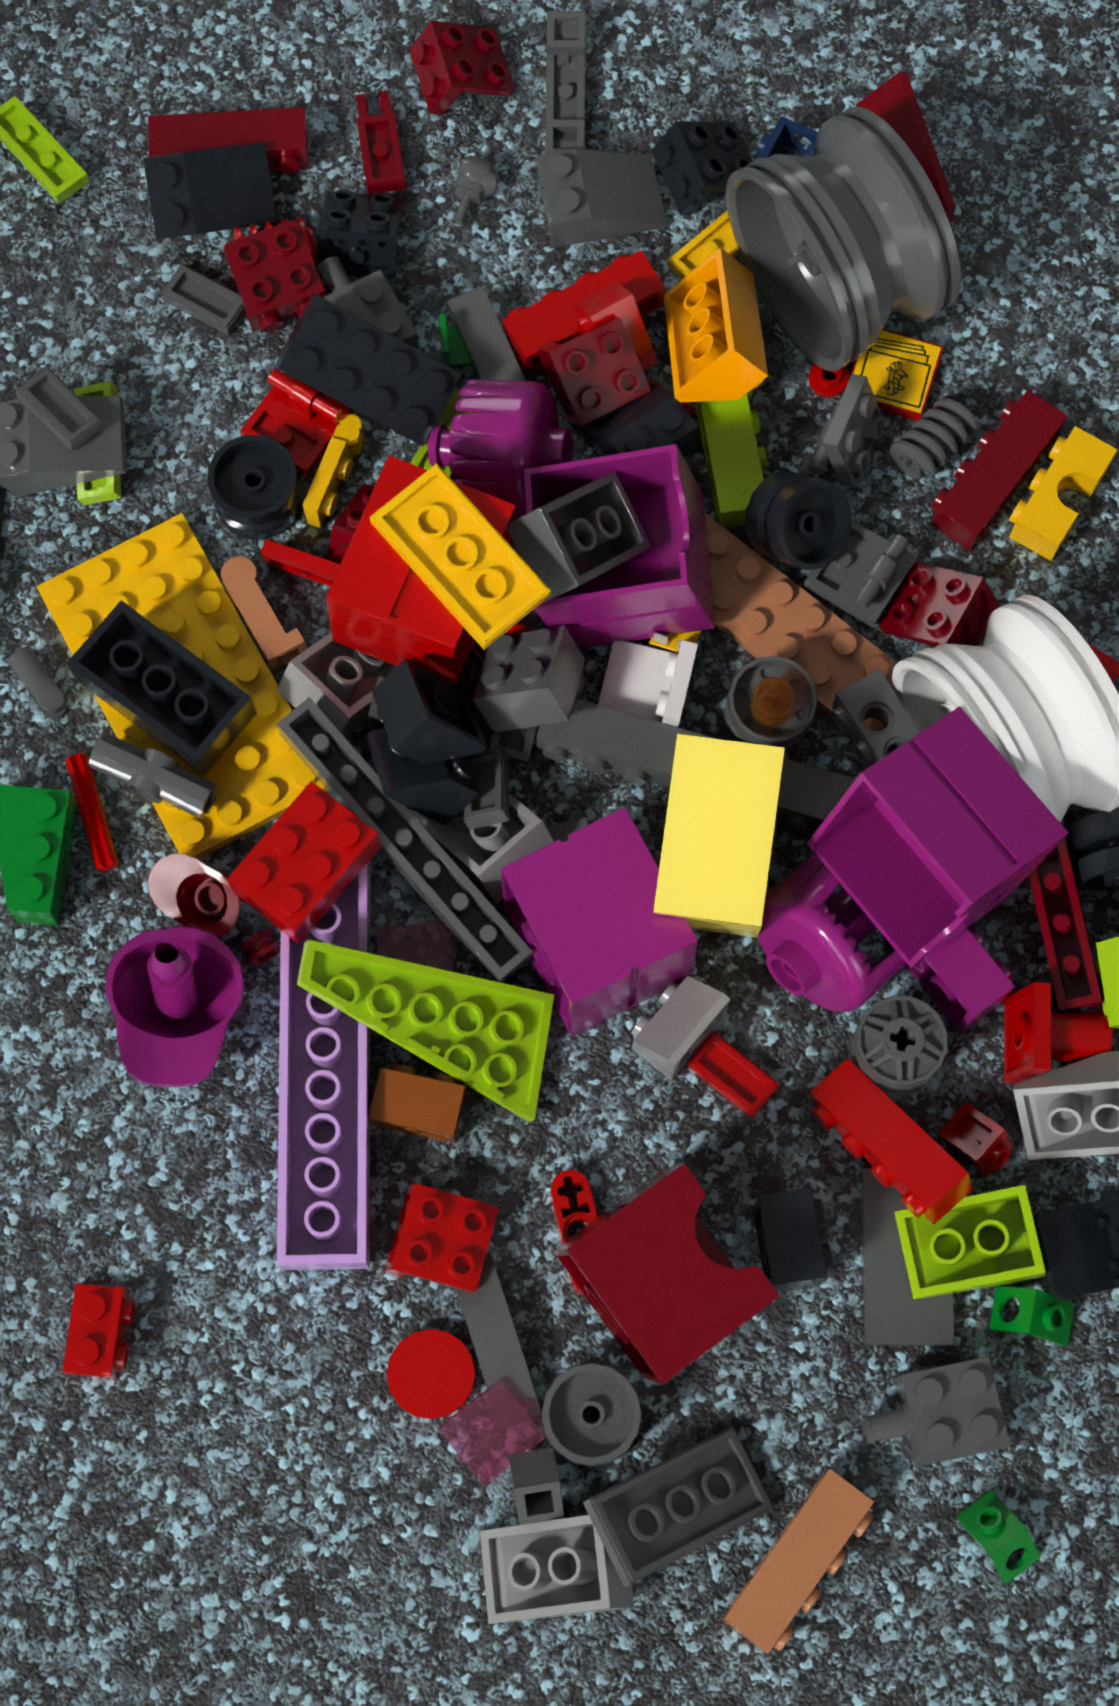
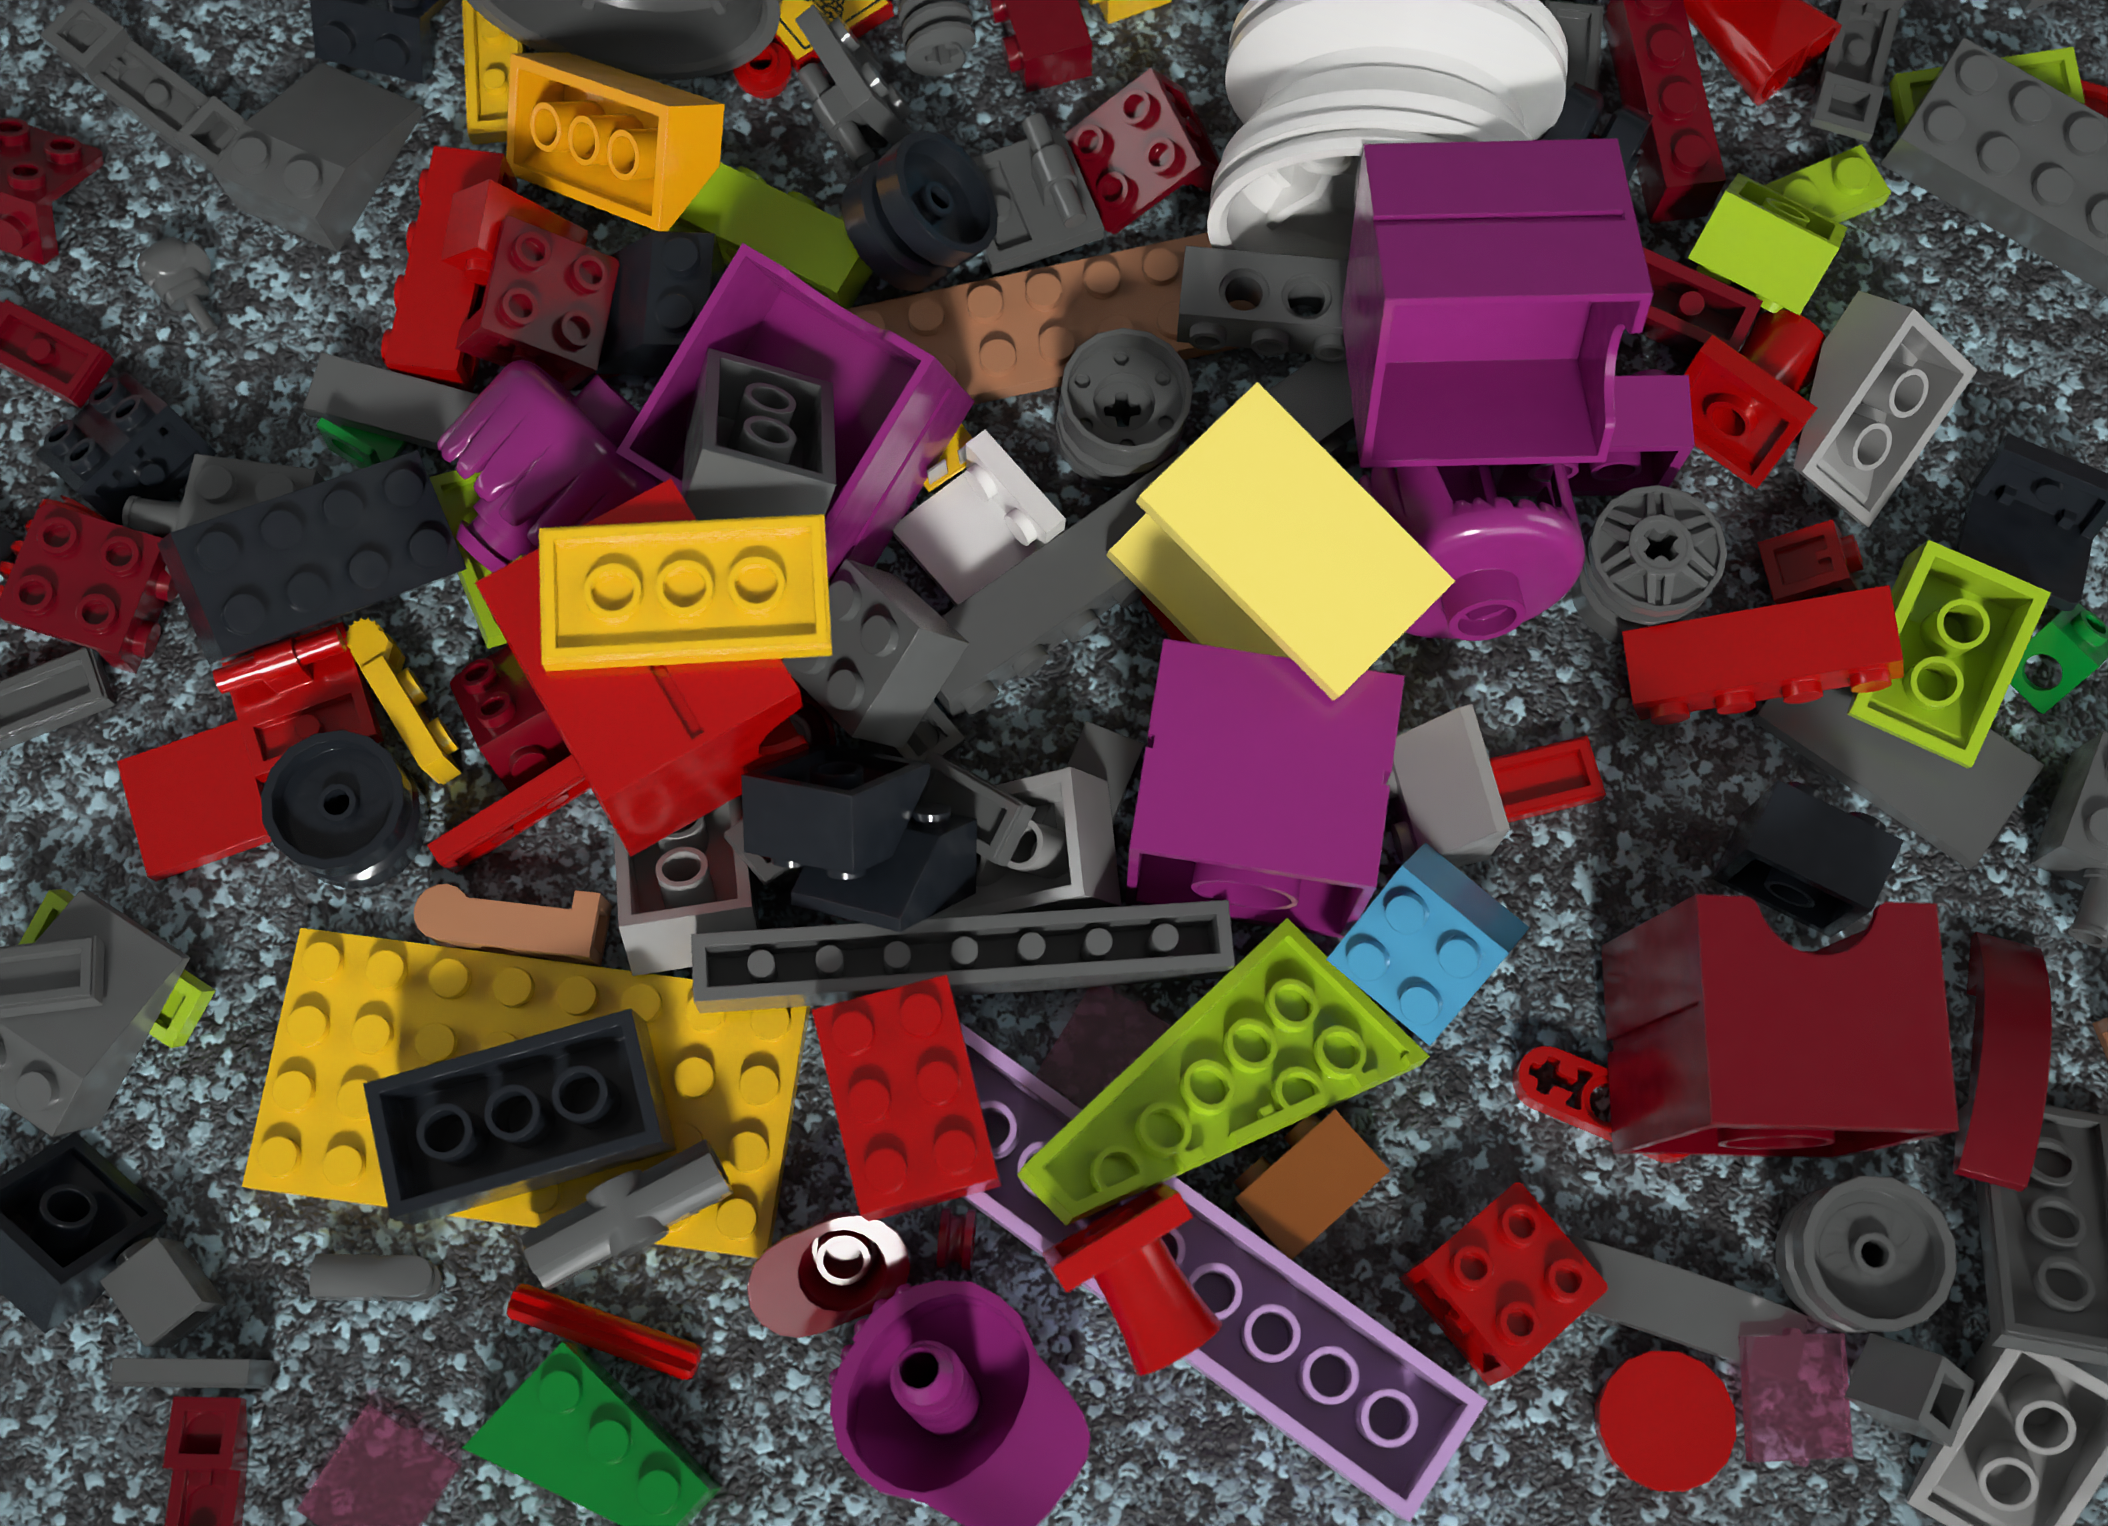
camera: 50 degrees left, 0 degrees up
(206, 411) = (193, 801): none -> red tile
(295, 1038) = (1139, 1278): none -> red plant
(589, 1072) = (1427, 943): none -> dark azure brick
(756, 1422) = (2008, 1062): none -> dark red slope
(771, 711) = (1128, 408): clear orange wheel -> none

